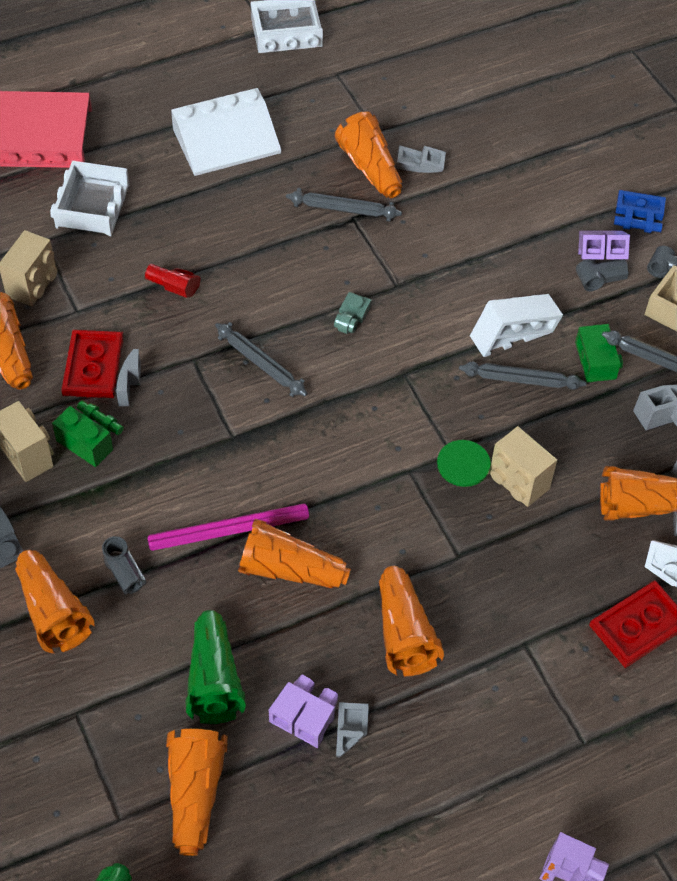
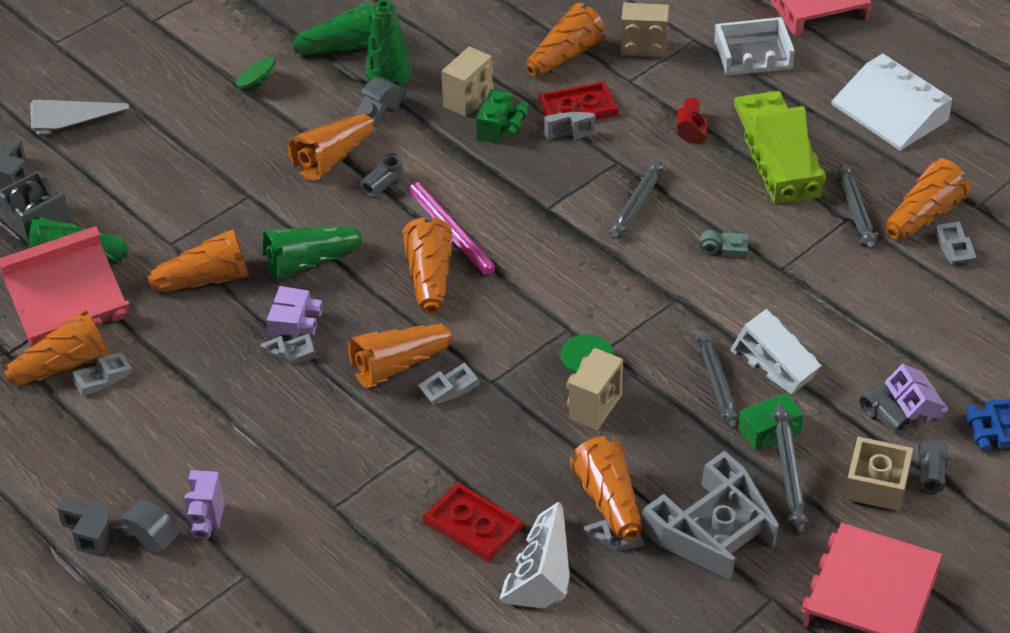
camera: 75 degrees right, 10 degrees down
(250, 226) = (780, 147): none -> lime wedge
(455, 592) = (446, 387): none -> light grey slope

